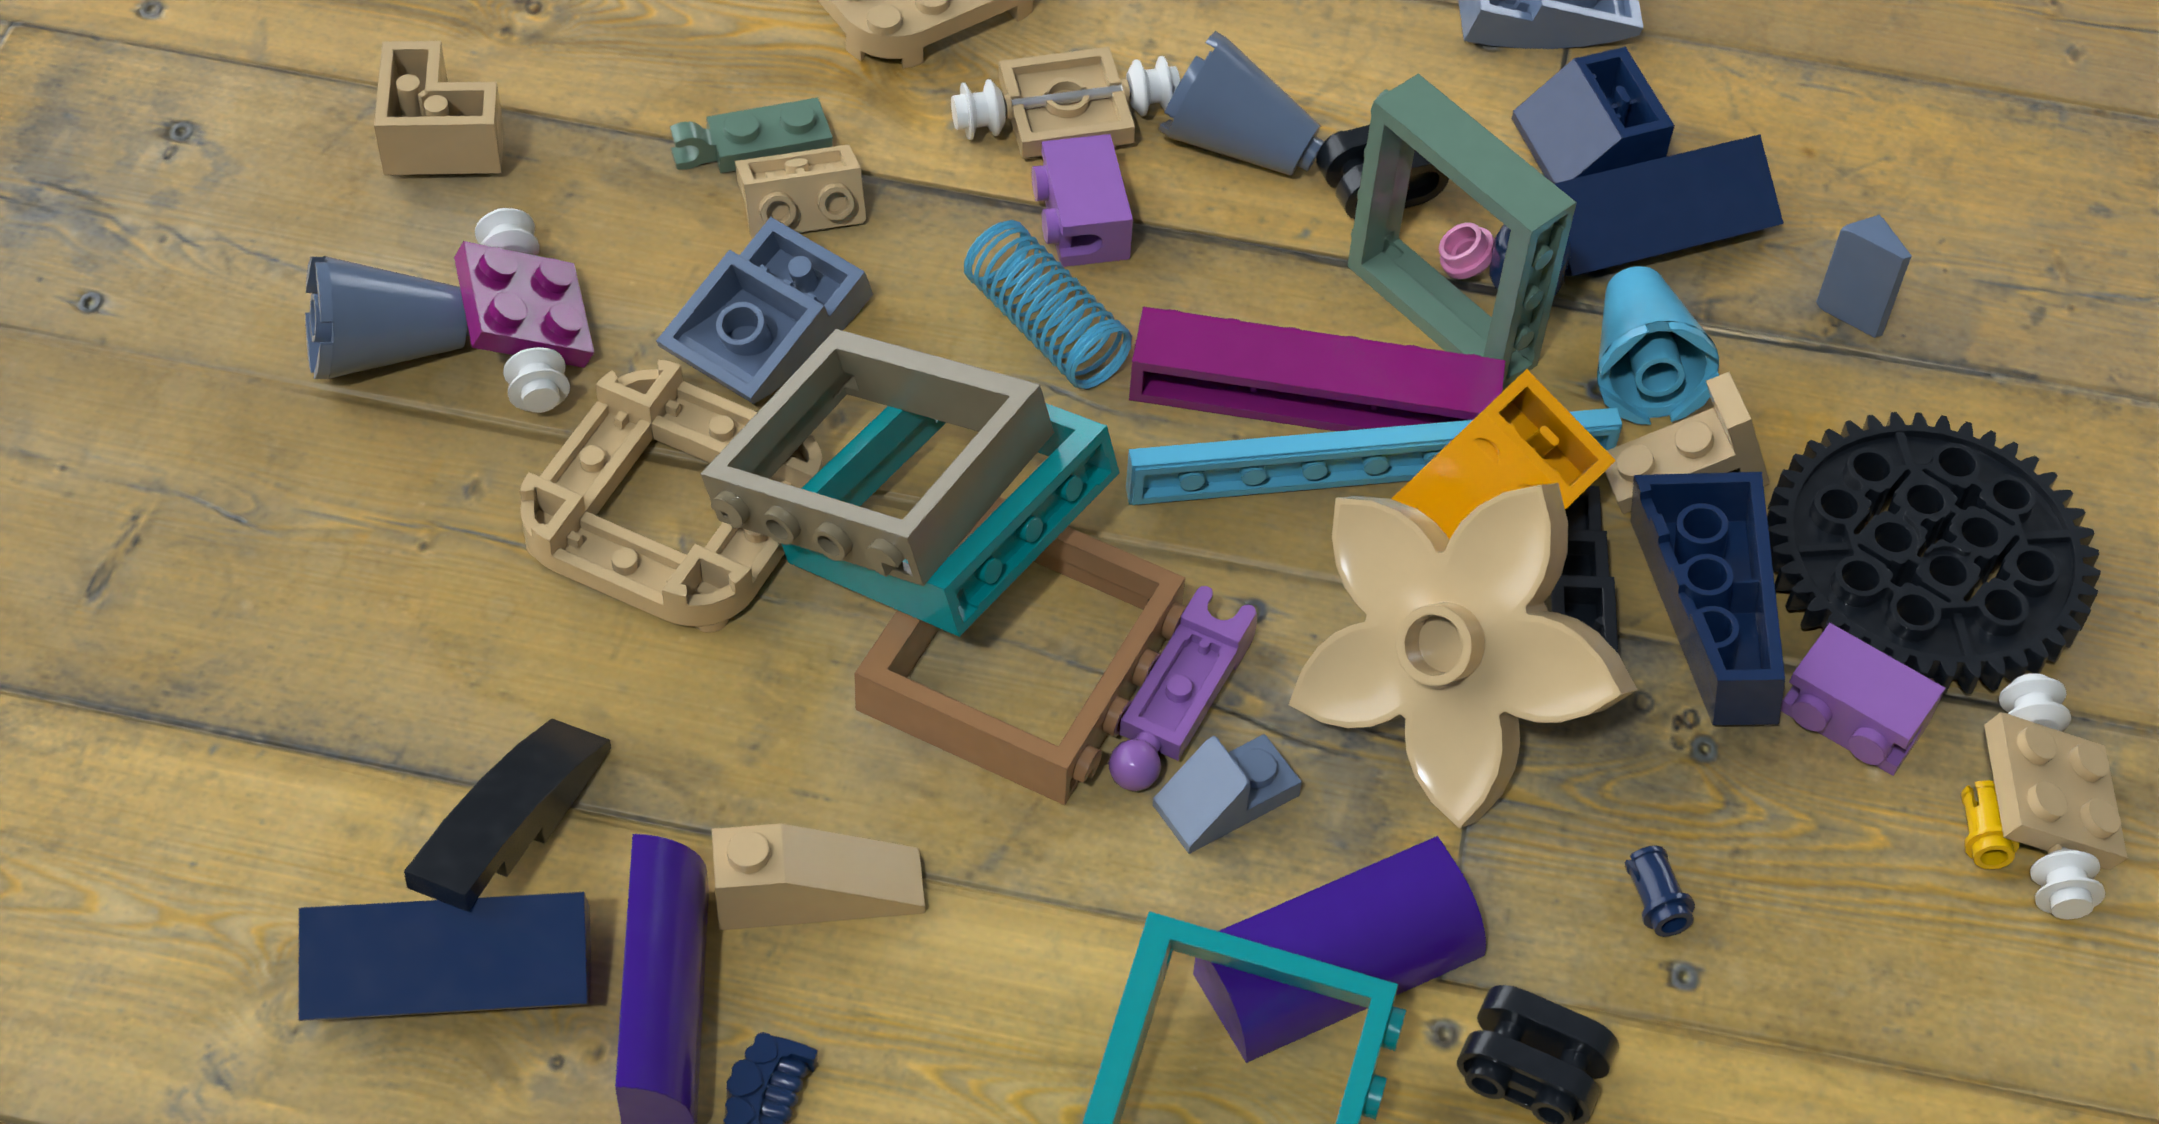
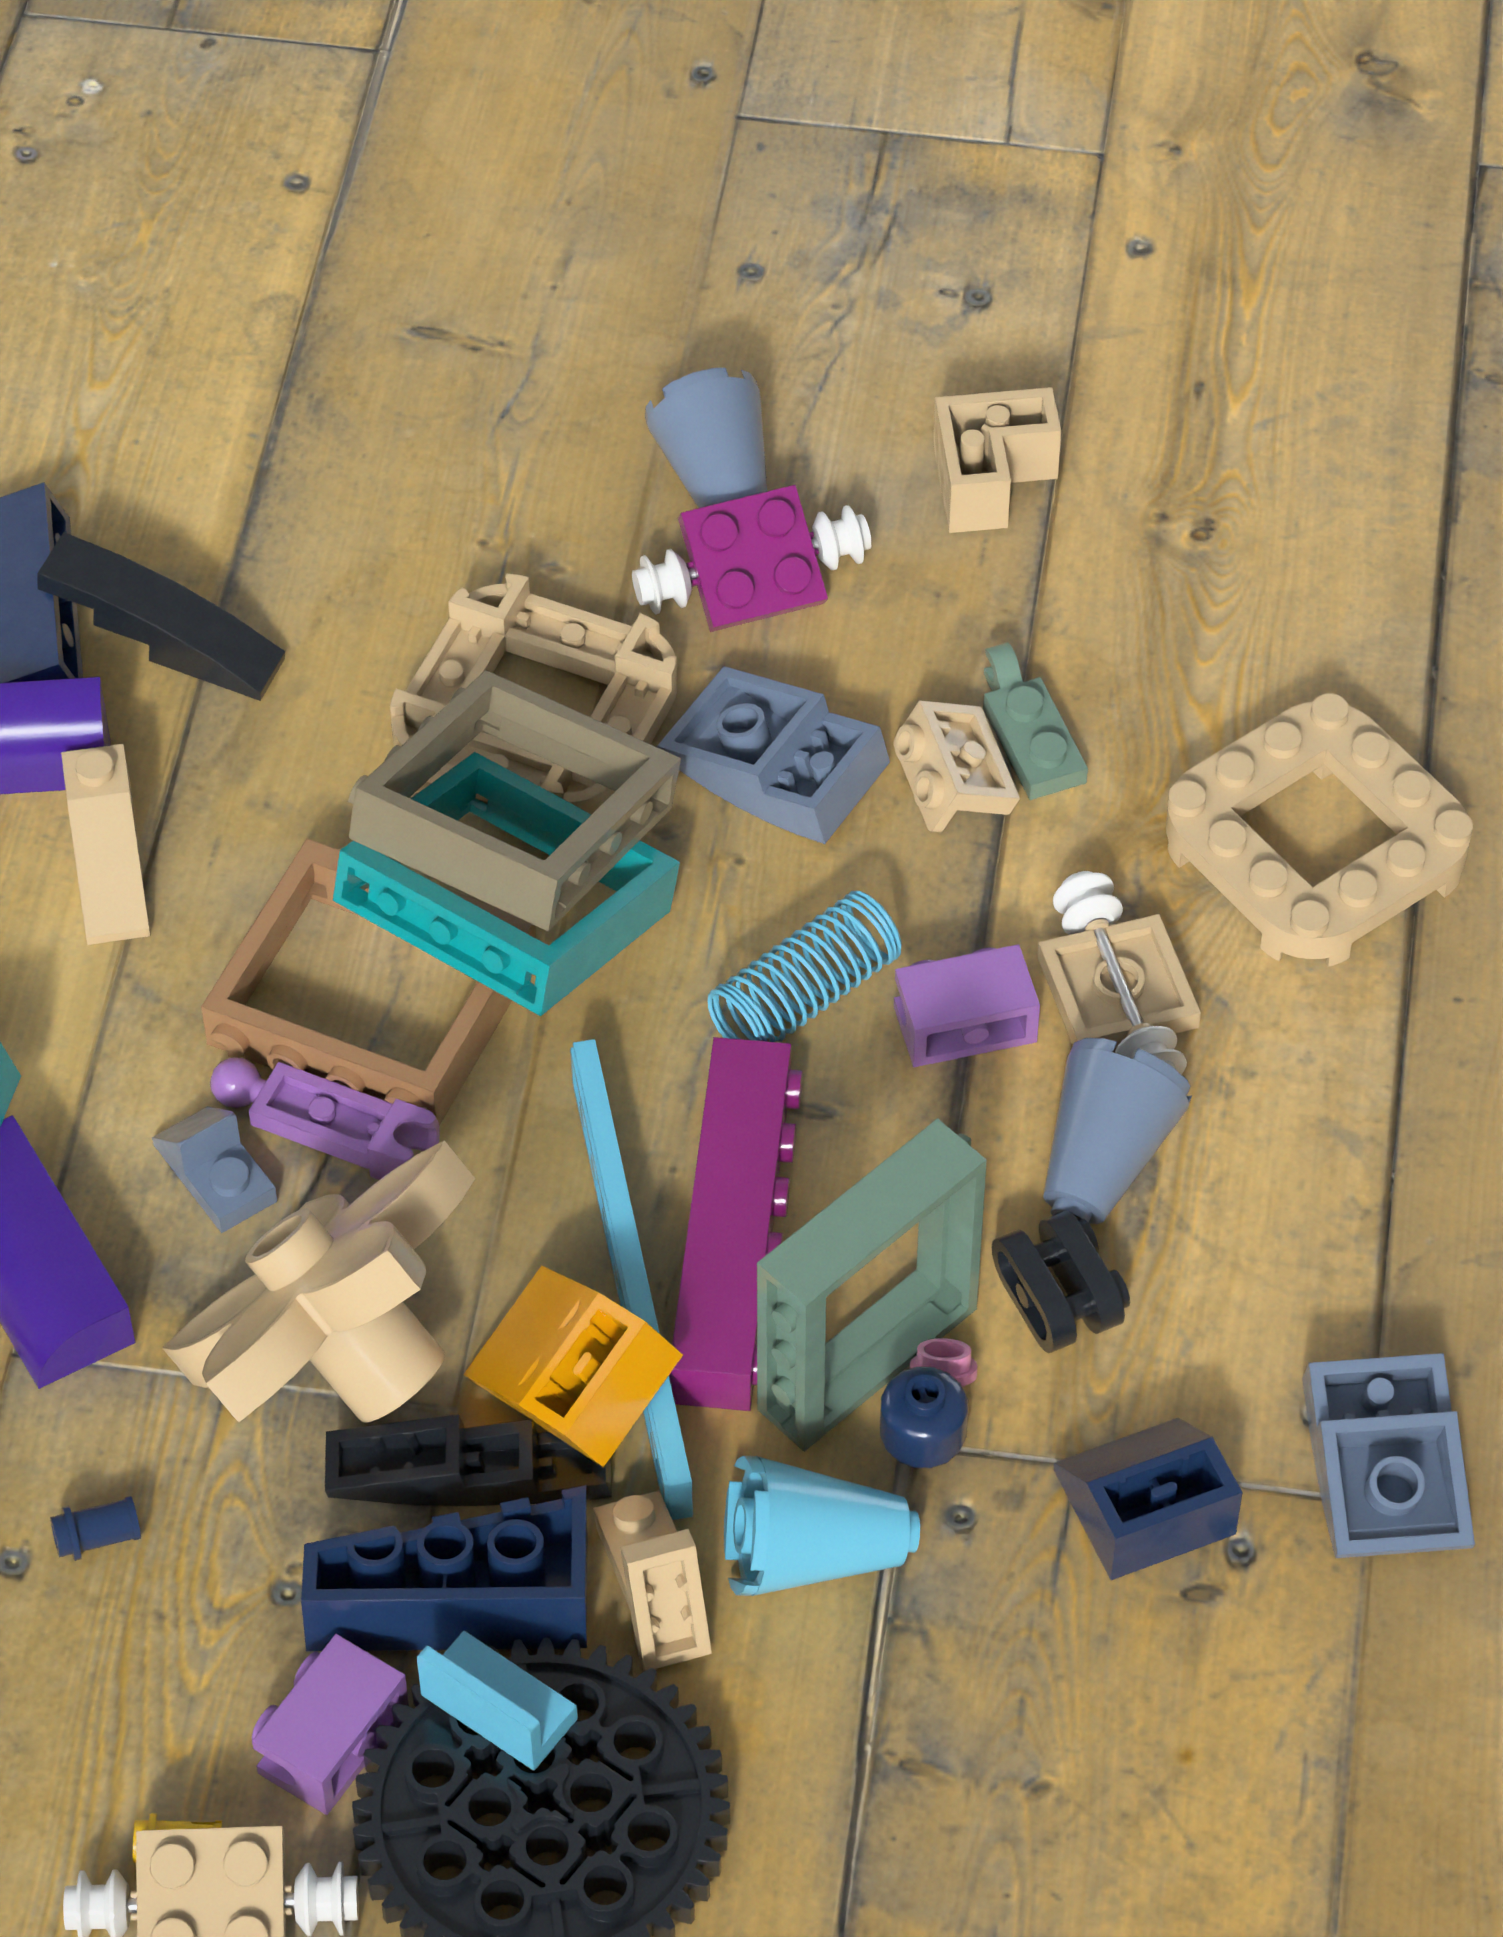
camera: 90 degrees right, 0 degrees up
(1670, 204) = (1034, 1558): dark blue brick -> none
(1856, 549) = (496, 1698): none -> medium azure panel
(1864, 275) = (923, 1752): sand blue slope -> none

